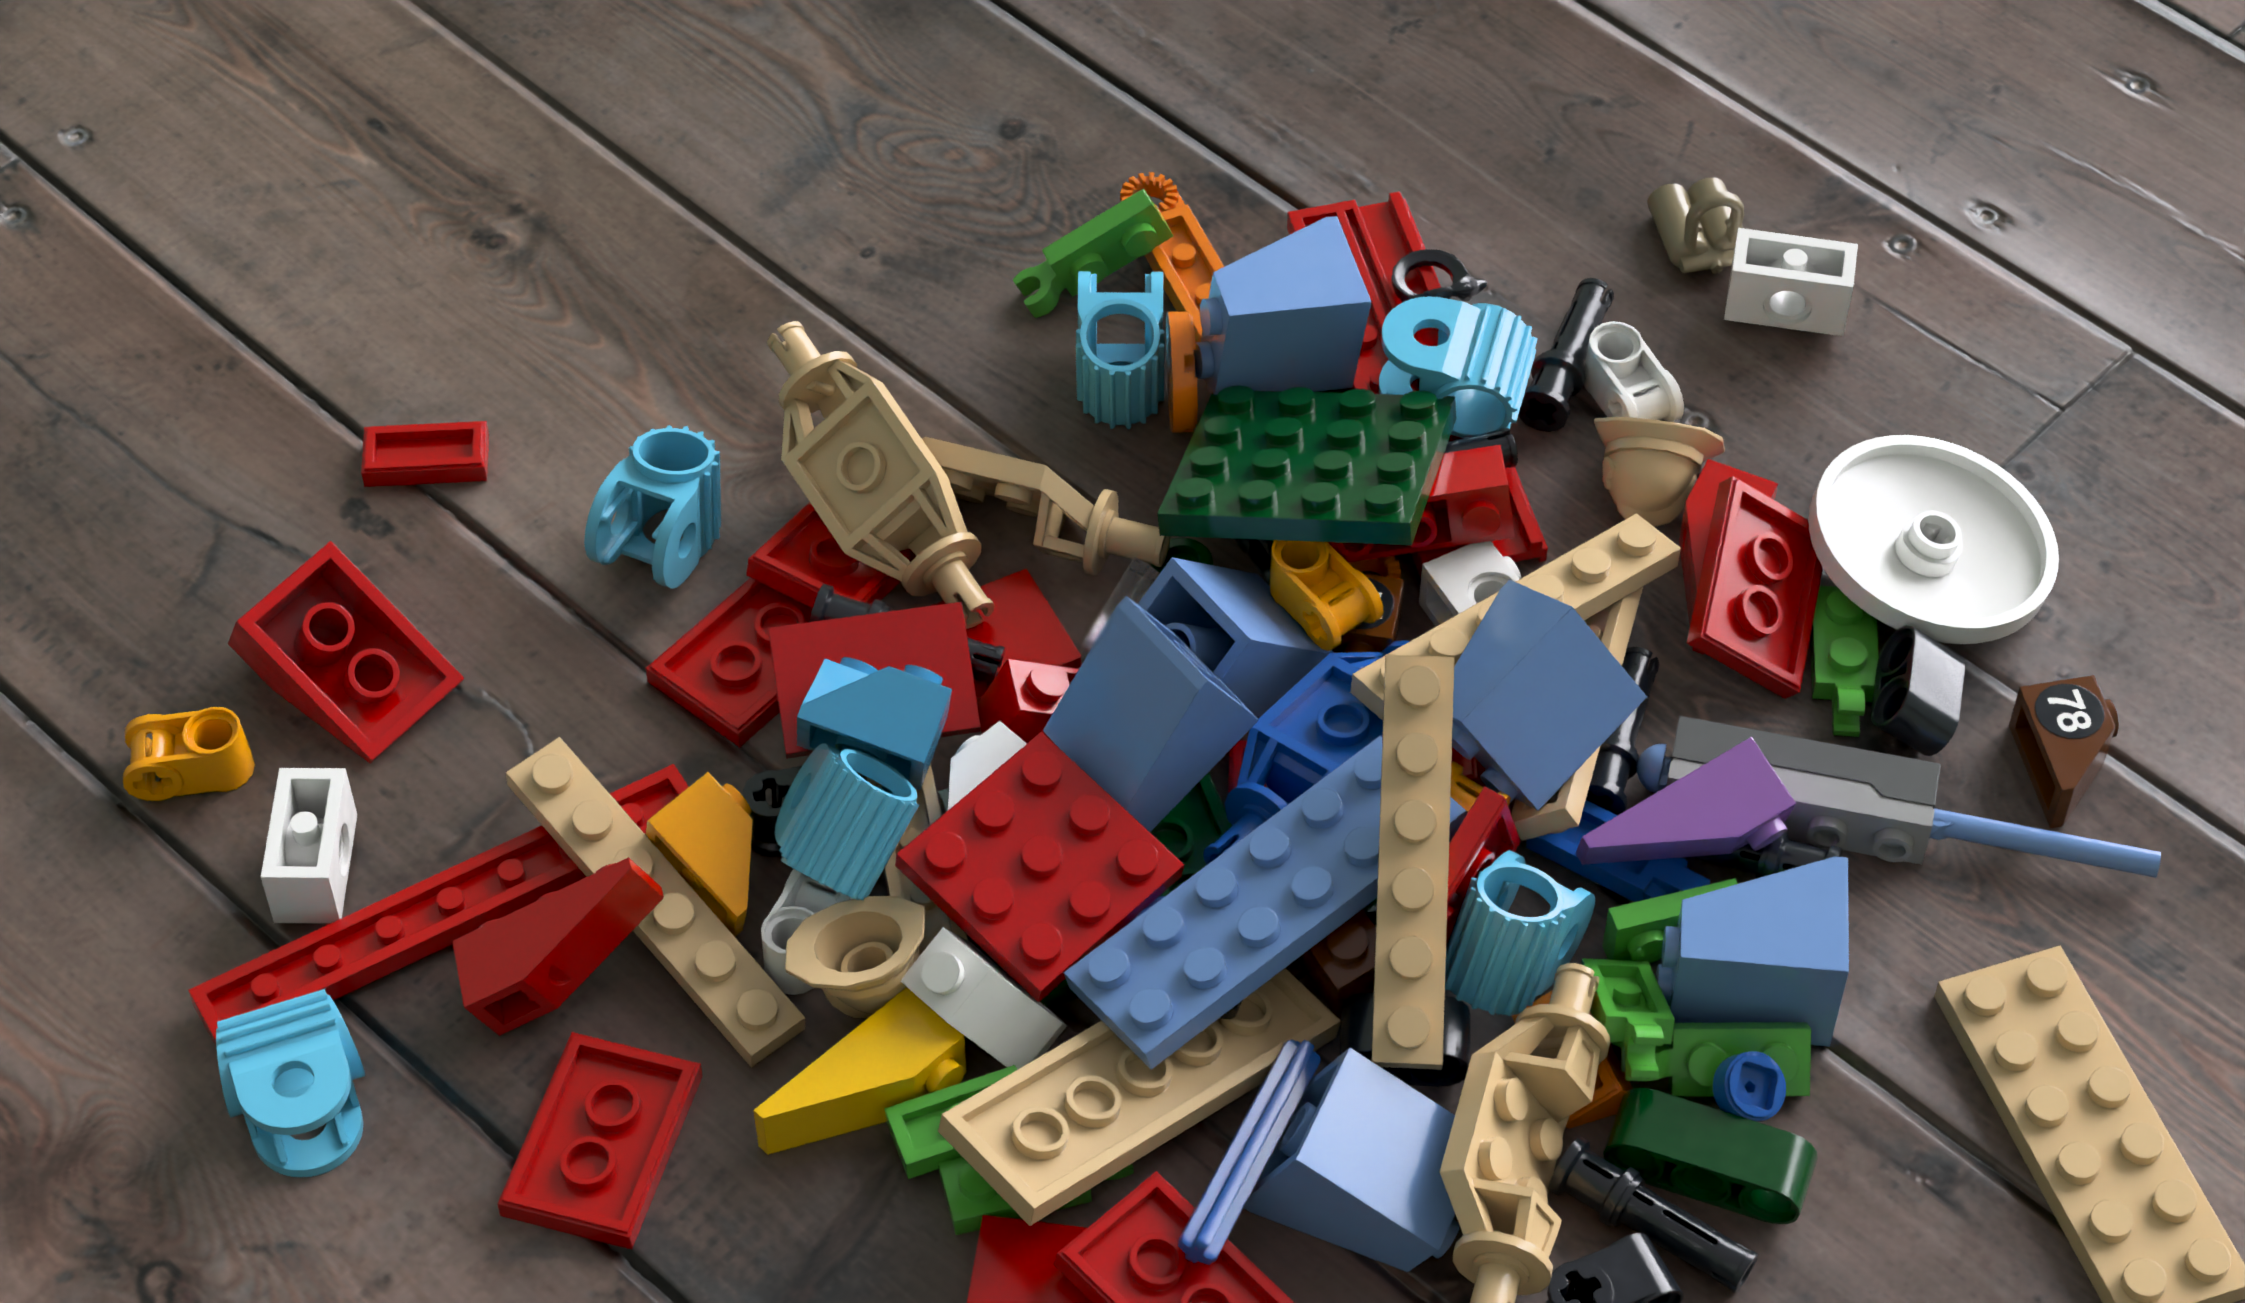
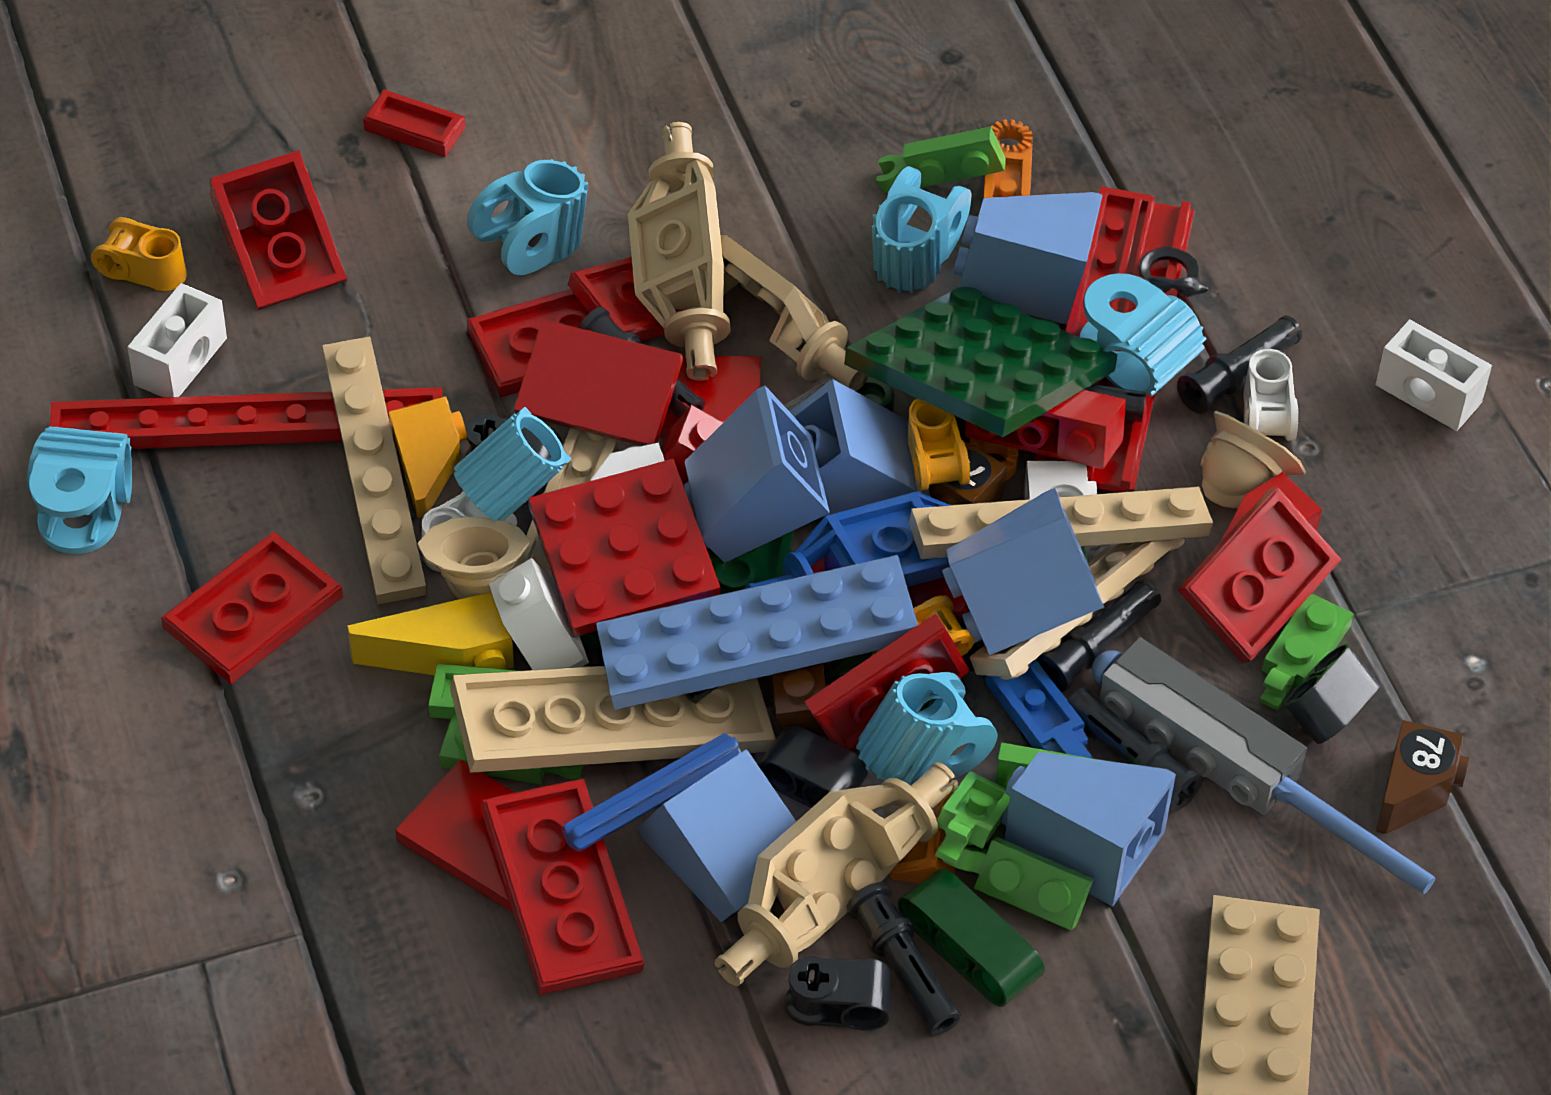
camera: 25 degrees right, 0 degrees up
(547, 949) = (281, 469): red slope -> none
(876, 712) = (577, 407): dark azure slope -> none
(1181, 371) = (939, 267): orange tile -> none
(1413, 862) = (857, 643): tan plate -> none
(1697, 224) = (1394, 303): dark tan piece -> none
(1702, 814) = (1107, 705): medium lavender slope -> none
(1749, 1086) = (1021, 901): blue tile -> none
(1933, 539) = (1414, 594): white dish -> none

